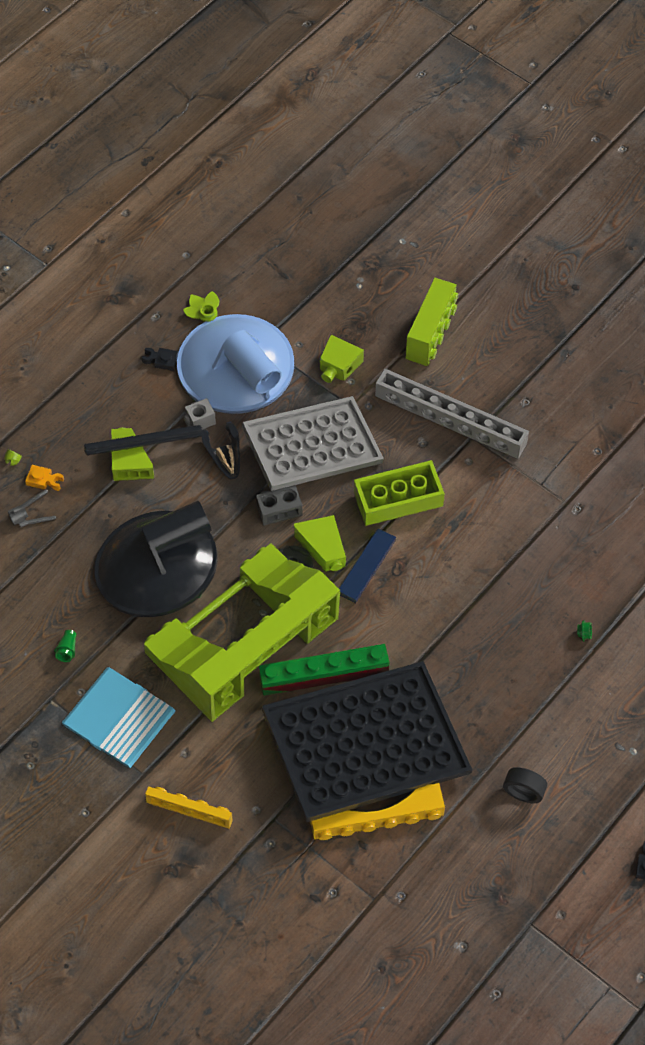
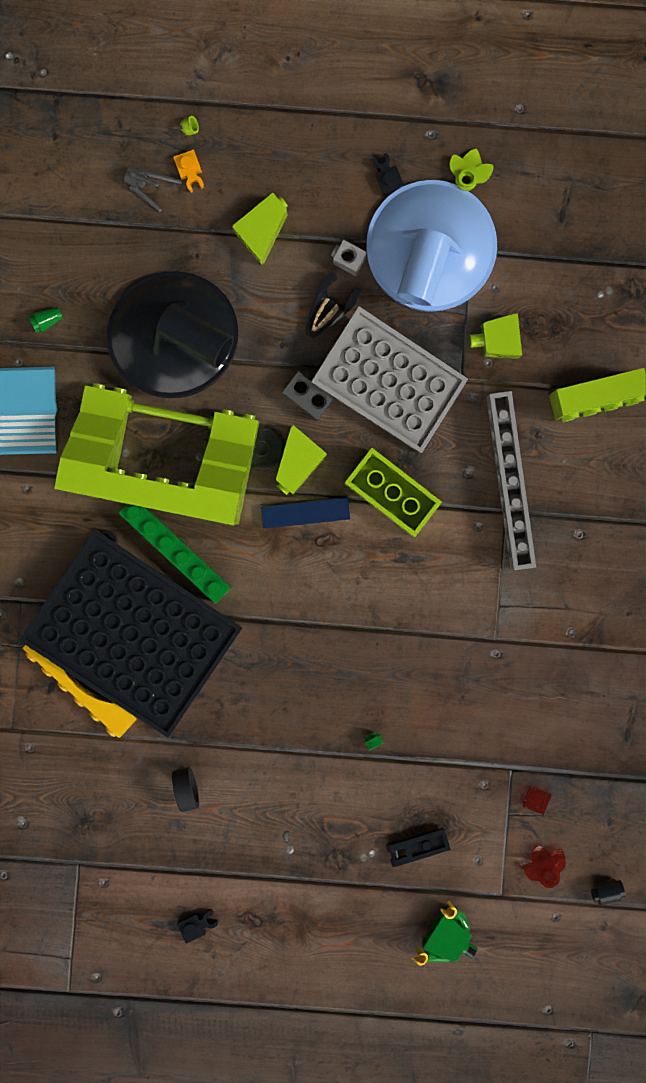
camera: 50 degrees right, 30 degrees up
(143, 440) = (278, 230): black axle -> none

